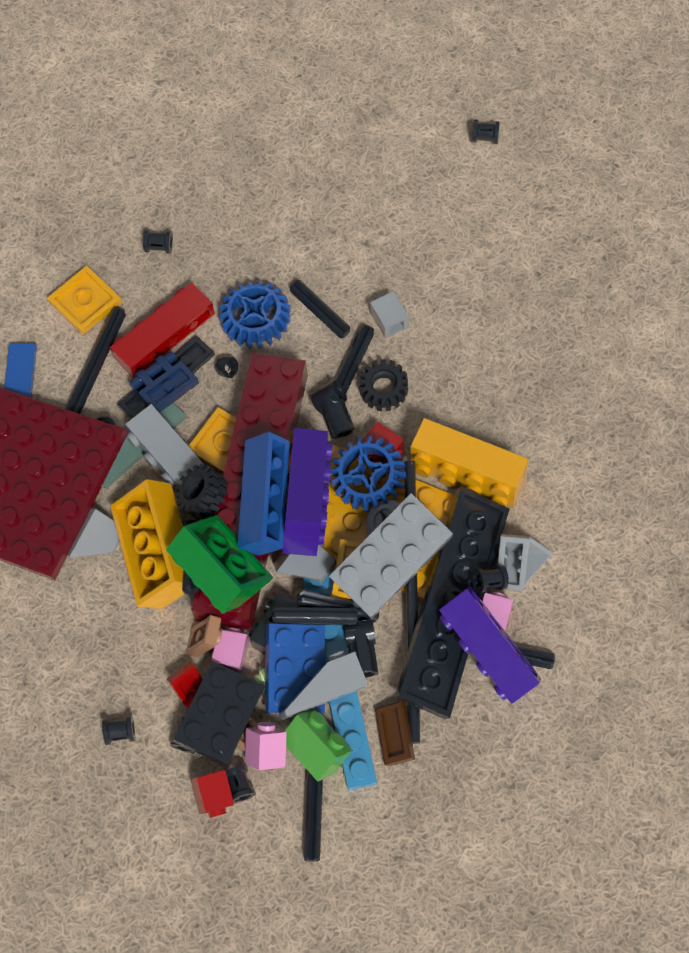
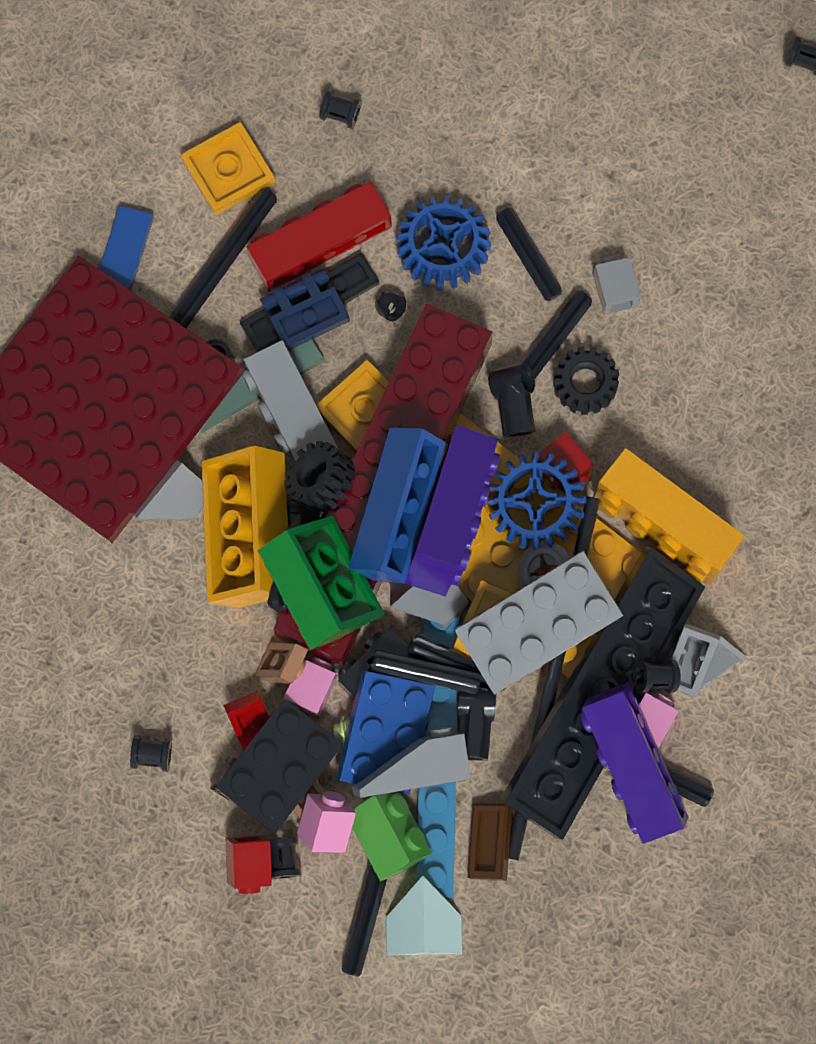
camera: 10 degrees right, 10 degrees up
(359, 807) = (423, 923): none -> light aqua slope

